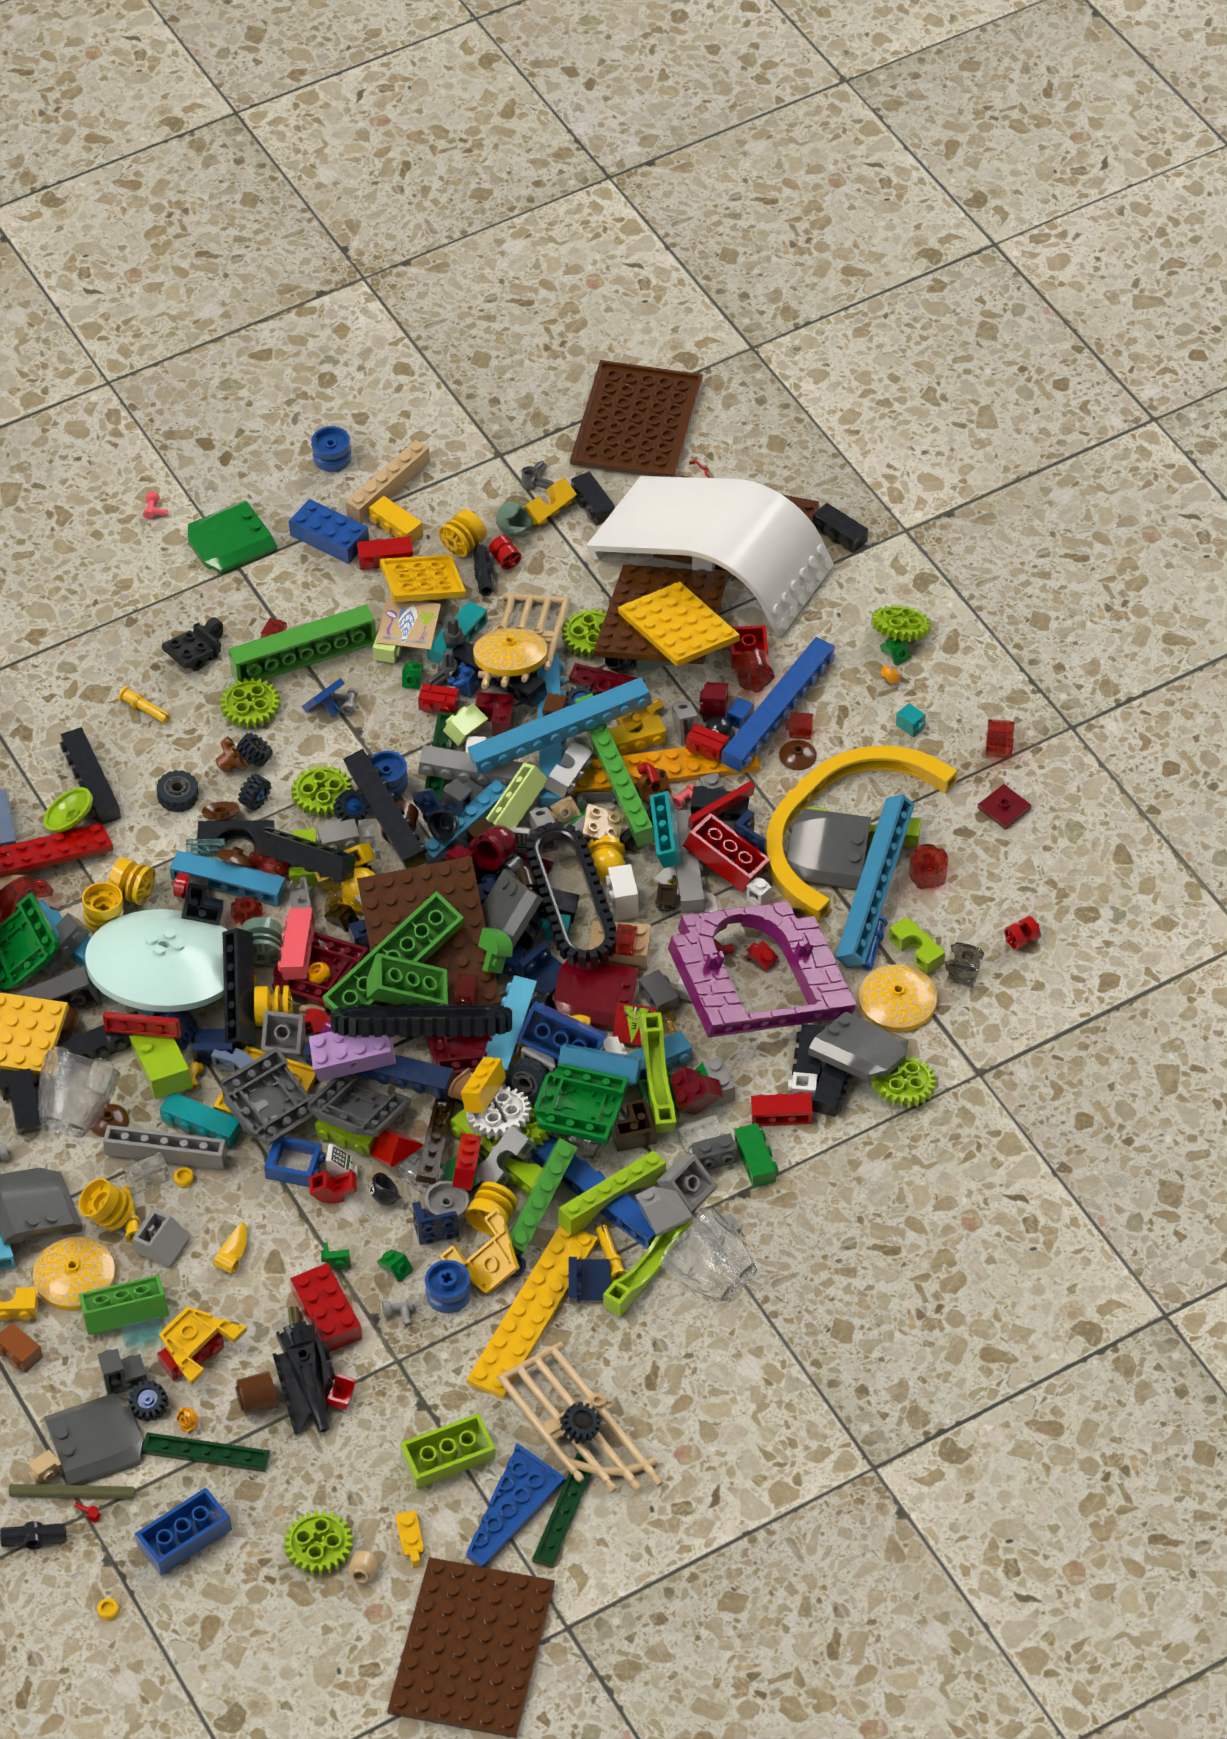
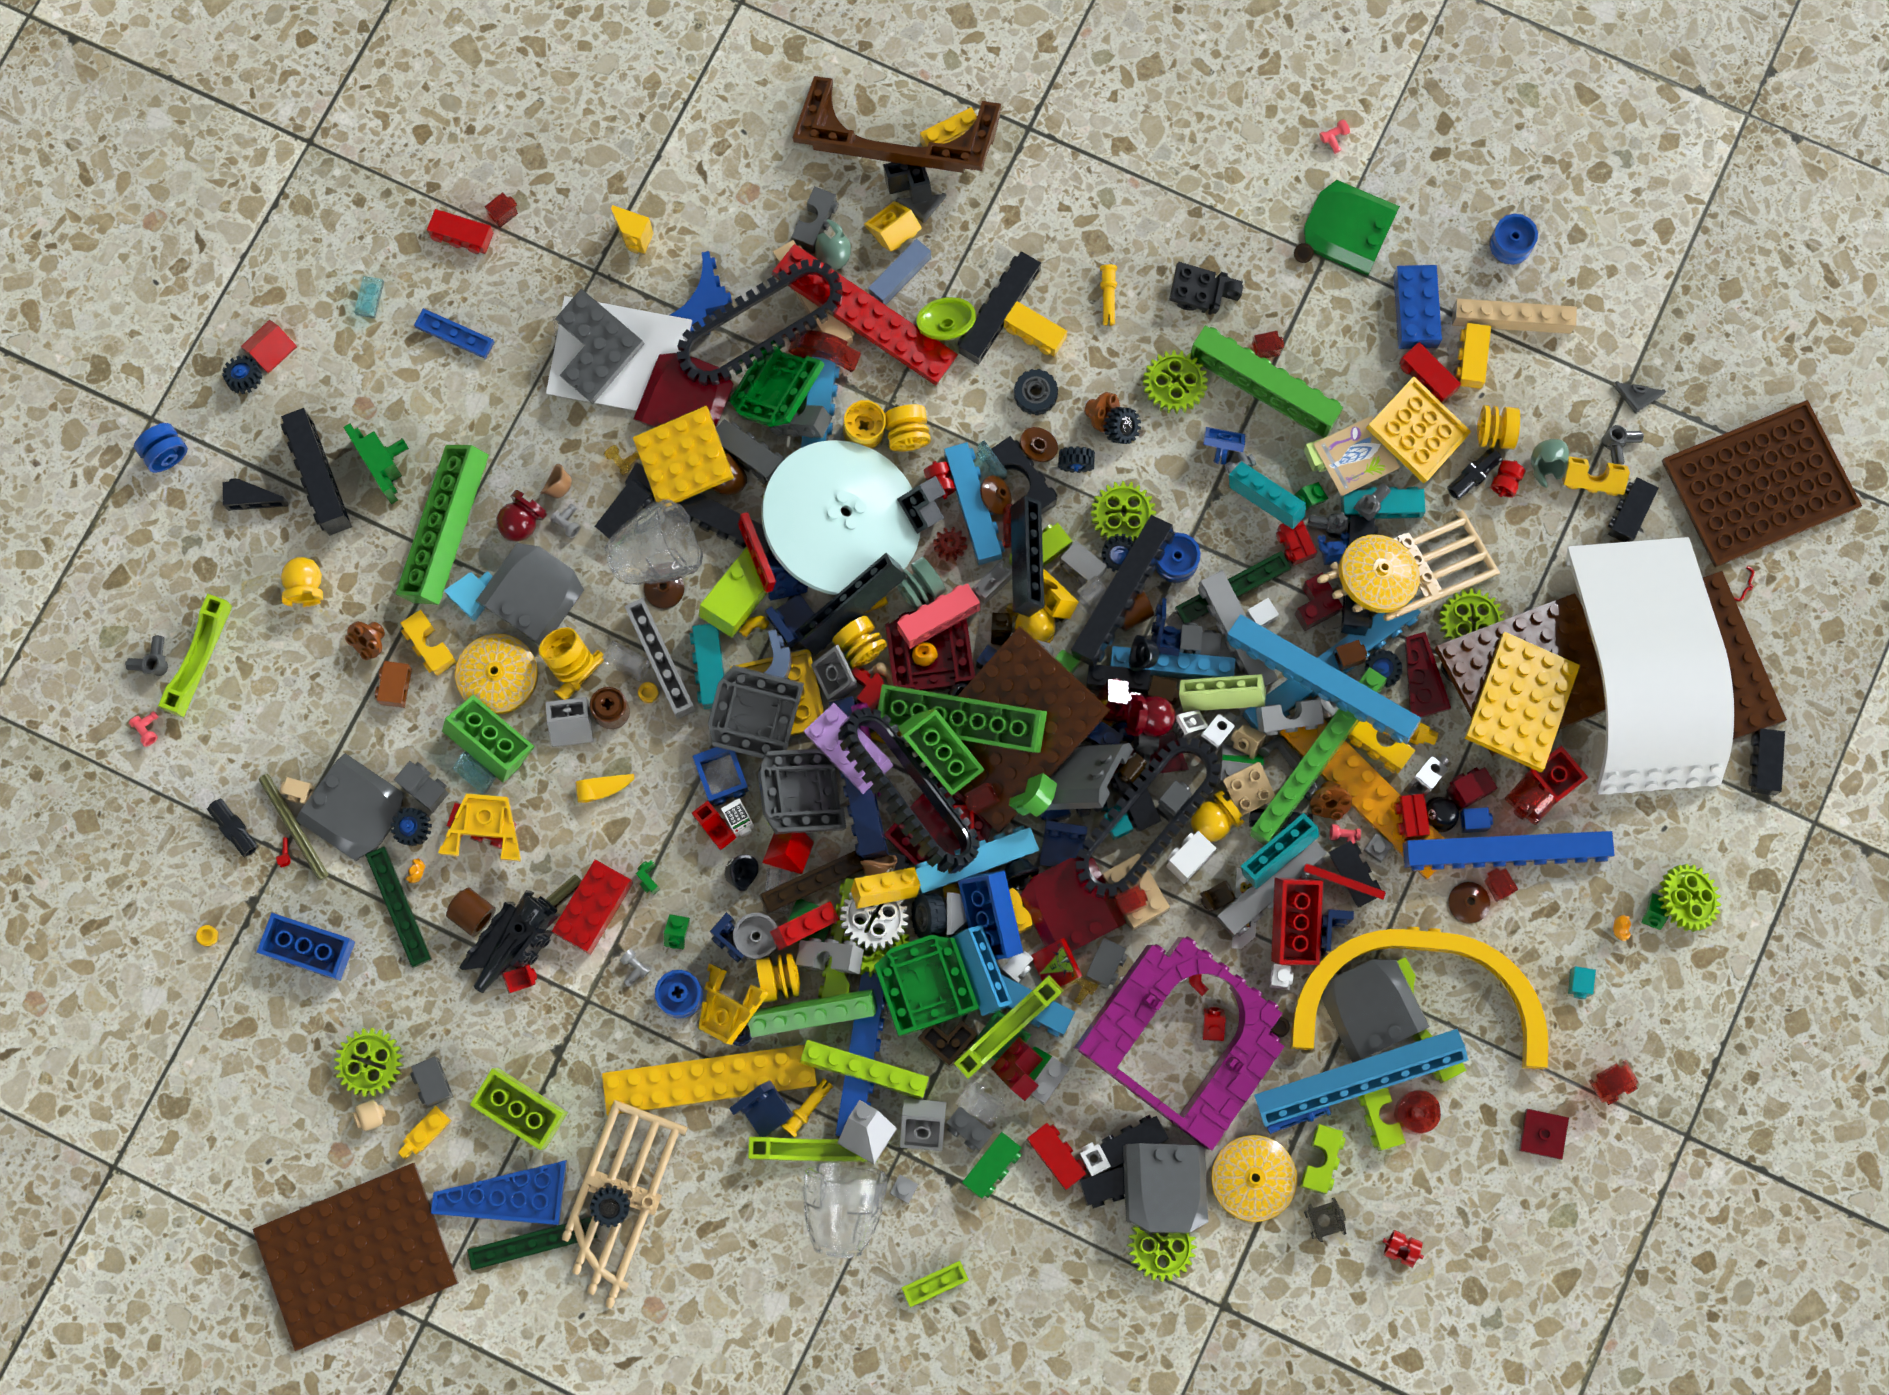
camera: 55 degrees right, 25 degrees up
(129, 763) = (1035, 329): none -> yellow brick
(175, 1200) = (618, 713): none -> reddish brown piece
(224, 574) = (1303, 253): none -> dark brown plate
(373, 1502) = (431, 1081): none -> dark grey brick
(389, 691) = (1267, 495): none -> teal brick
(465, 723) = (1281, 586): yellowish green brick -> none
(509, 451) = (1637, 395): none -> dark grey tile
(572, 871) = (1173, 800): none -> dark grey arch
(649, 770) = (1334, 793): red arm -> none
(817, 1245) = (935, 1283): none -> lime plate
(926, 898) = (1384, 1135): none -> lime arch

